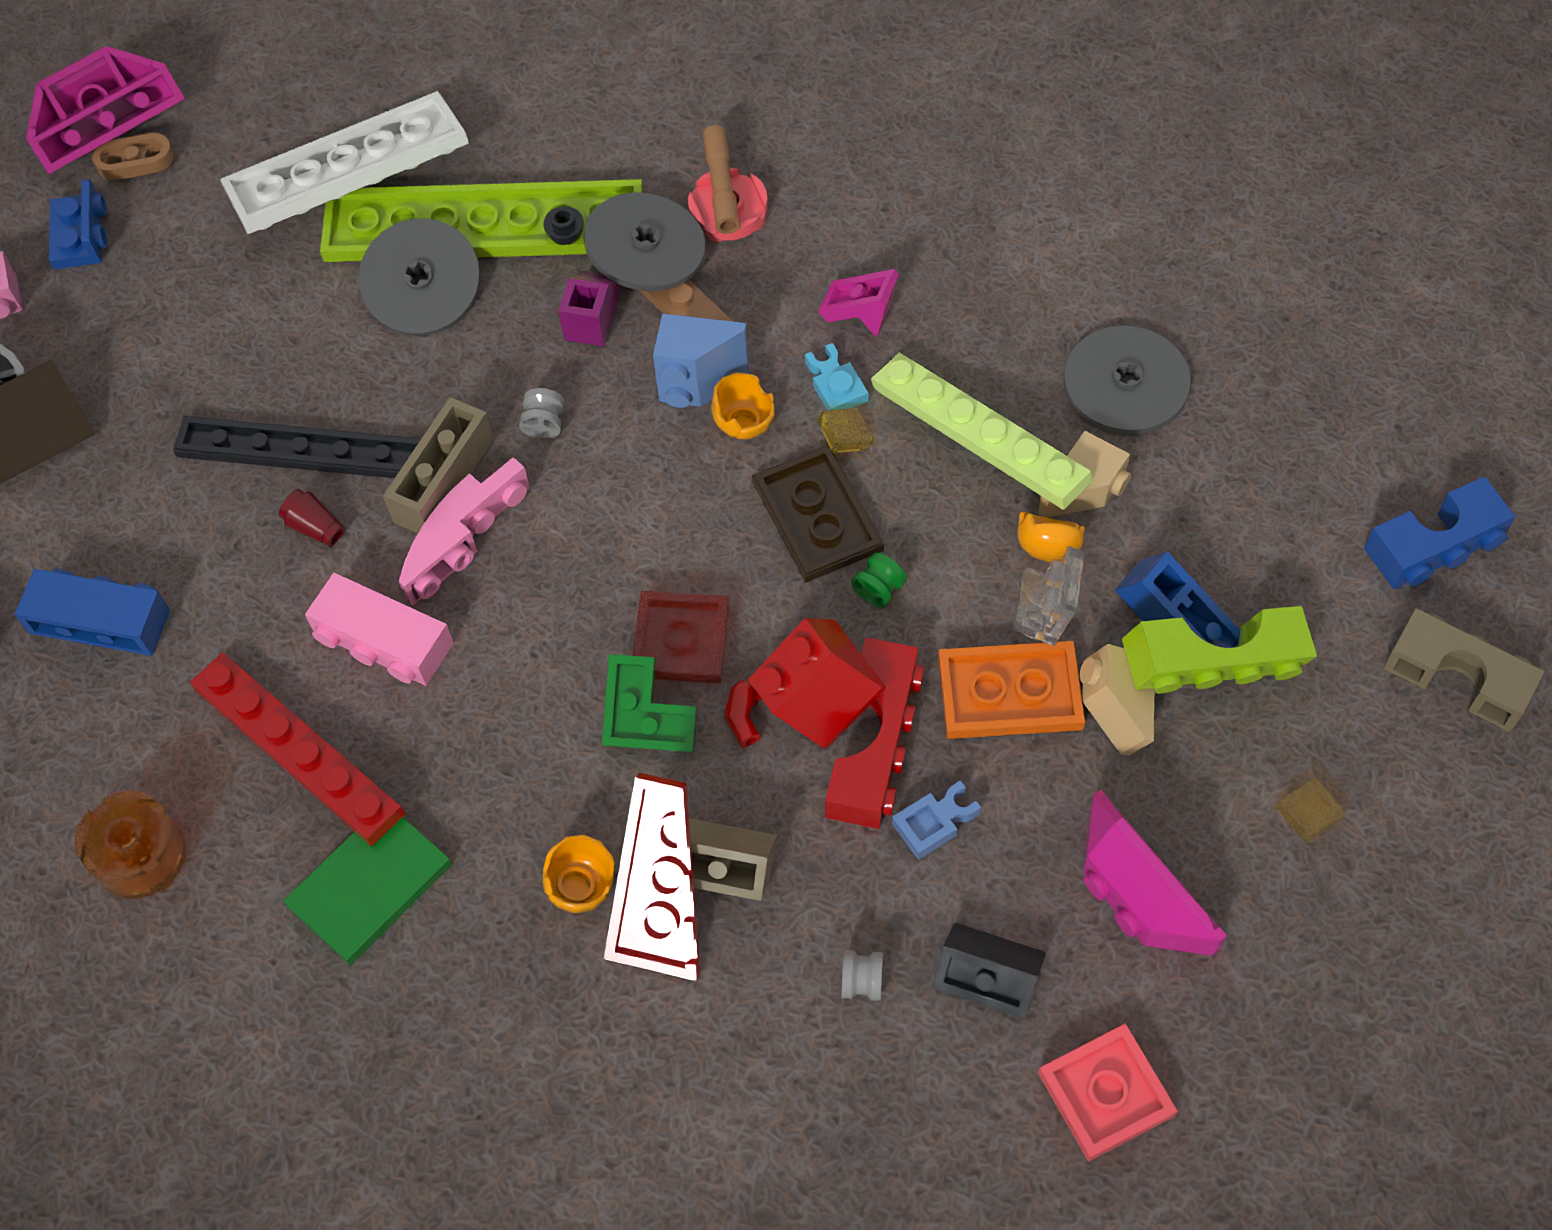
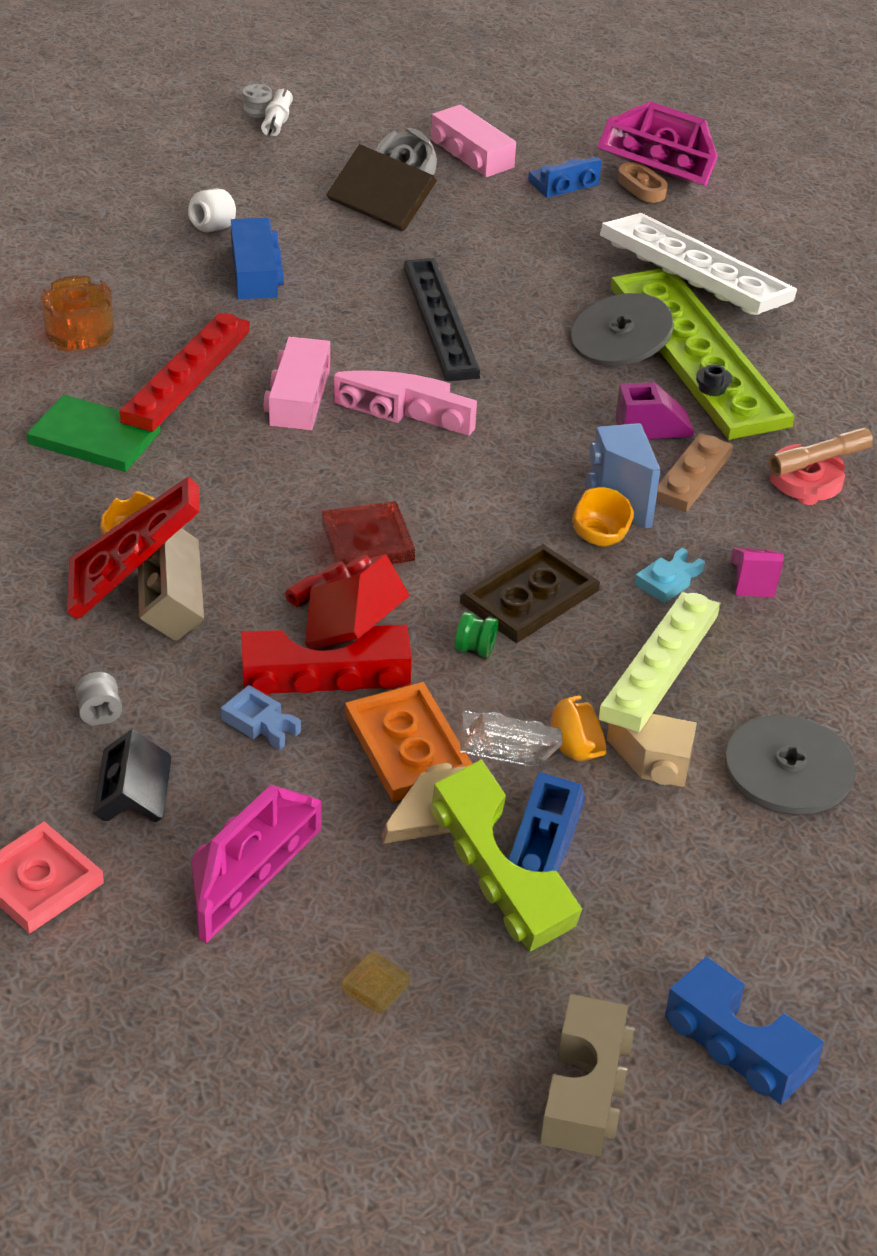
camera: 65 degrees right, 20 degrees down
(308, 516) = (380, 330): dark red cone -> none
(438, 463) = (470, 370): dark tan brick -> none
(542, 413) = (534, 417): light grey wheel -> none
(632, 716) = (280, 522): green plate -> none
(665, 263) = (753, 430): dark grey piece -> none
(845, 430) = (619, 587): clear yellow tile -> none

